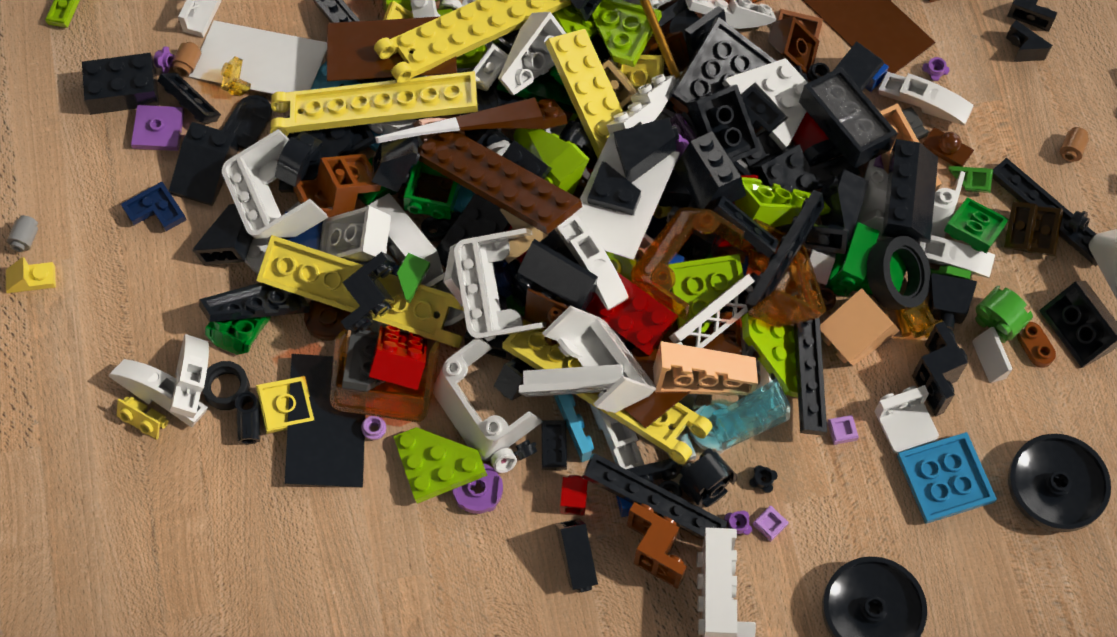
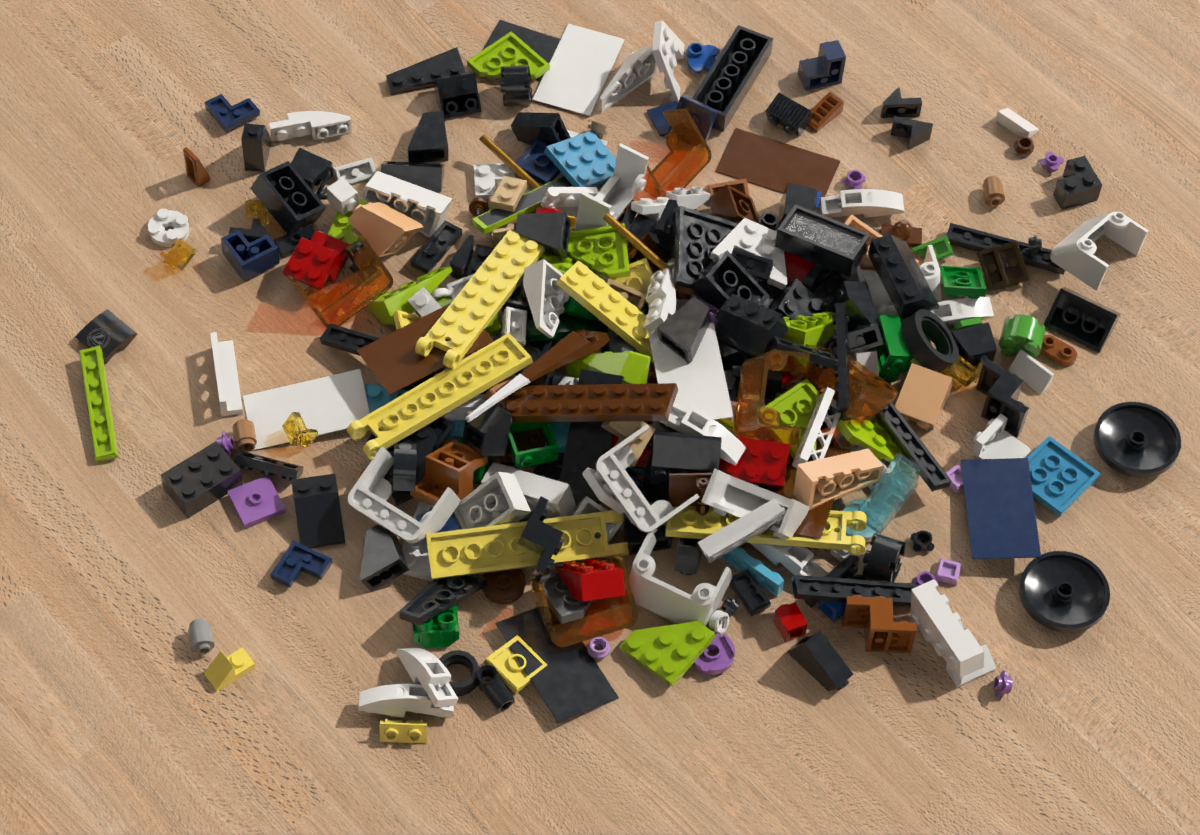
camera: 30 degrees left, 10 degrees down
(249, 120) = (330, 457): black window -> none
(411, 274) = (562, 510): bright green tile -> none
(614, 191) = (684, 372): black wing -> none
(863, 485) = (1000, 508): none -> dark blue piece

